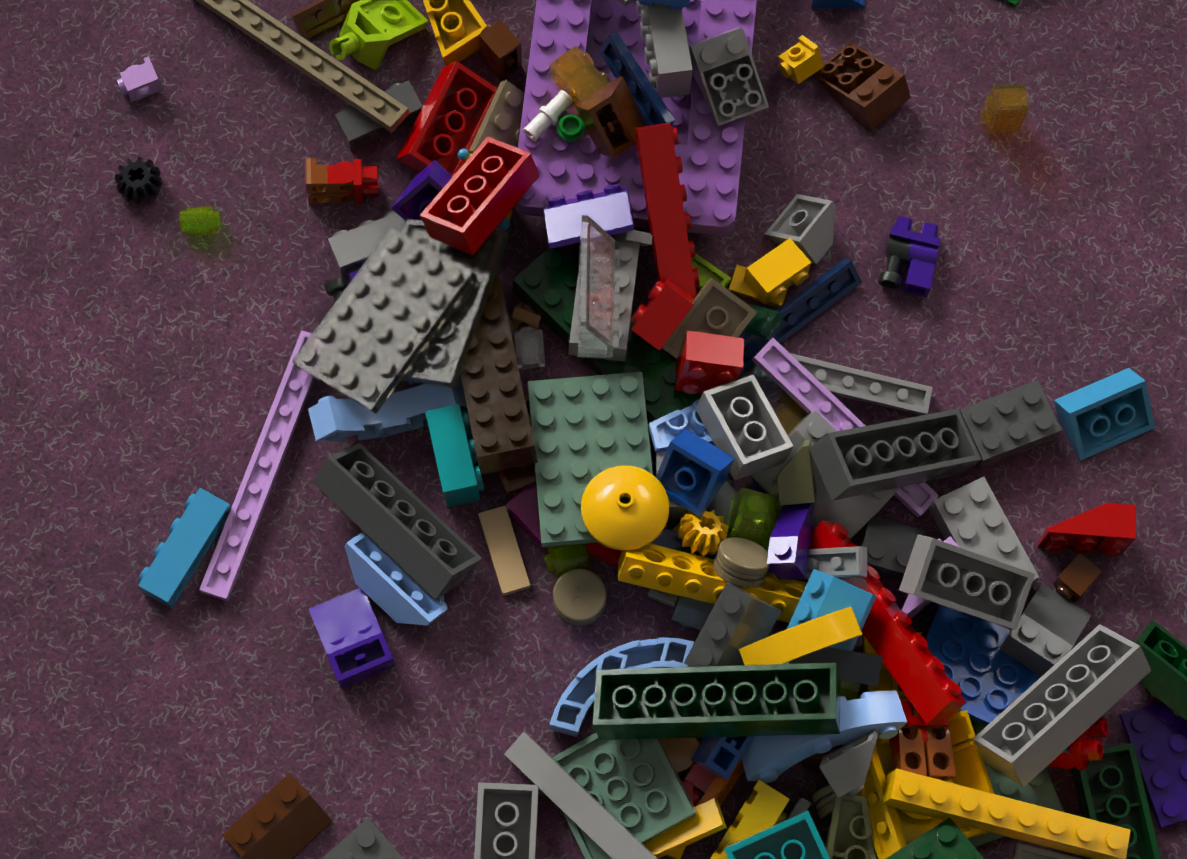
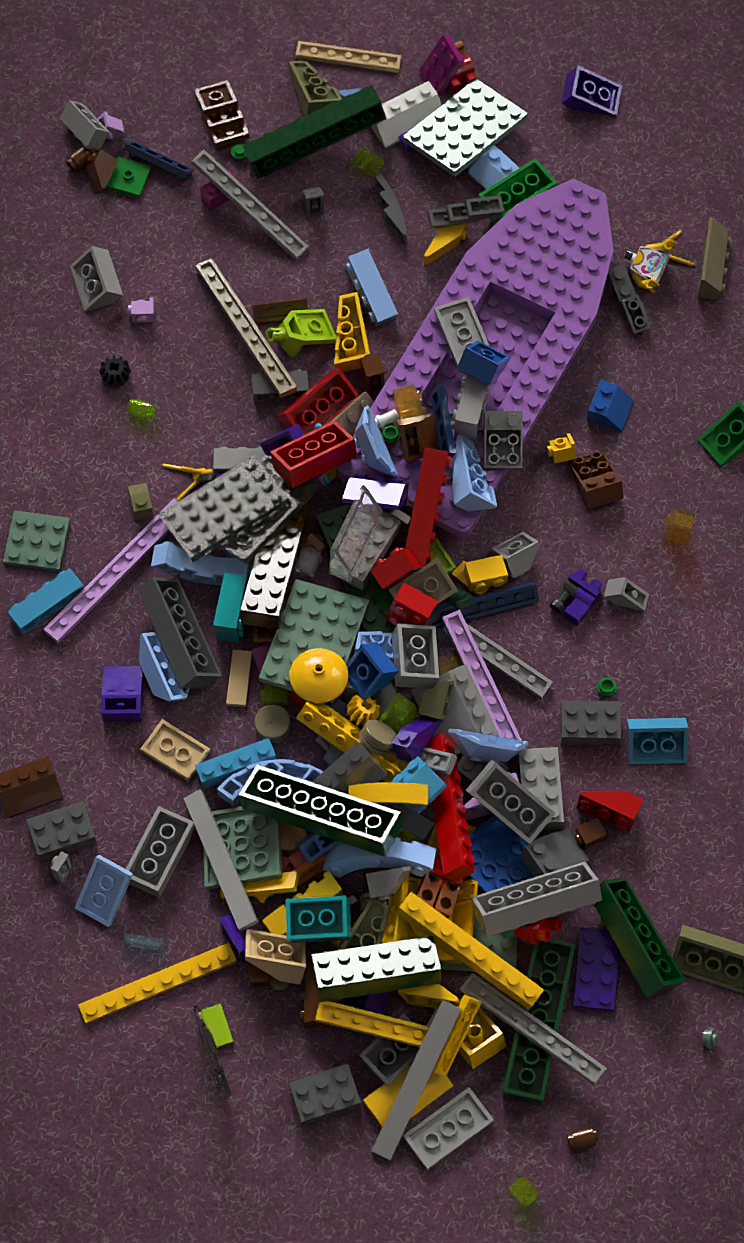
camera: 25 degrees right, 5 degrees down
(54, 59) = (96, 279): none -> light grey slope
(132, 465) = (36, 540): none -> sand green plate
(256, 351) = (140, 501): none -> olive slope
(317, 283) = (196, 473): none -> yellow plant
(340, 182) = (236, 417): hips -> none
(460, 688) = (175, 749): none -> tan tile
(554, 675) = (222, 767): none -> dark azure brick
(557, 152) = (373, 446): none -> light blue wedge
(709, 157) = (469, 482): none -> light blue wedge
(893, 514) = (486, 746): none -> light blue wedge
(894, 454) = (504, 709): dark grey brick -> none
(973, 227) = (626, 594): none -> light grey slope
(1004, 366) = (606, 687): none -> green plate

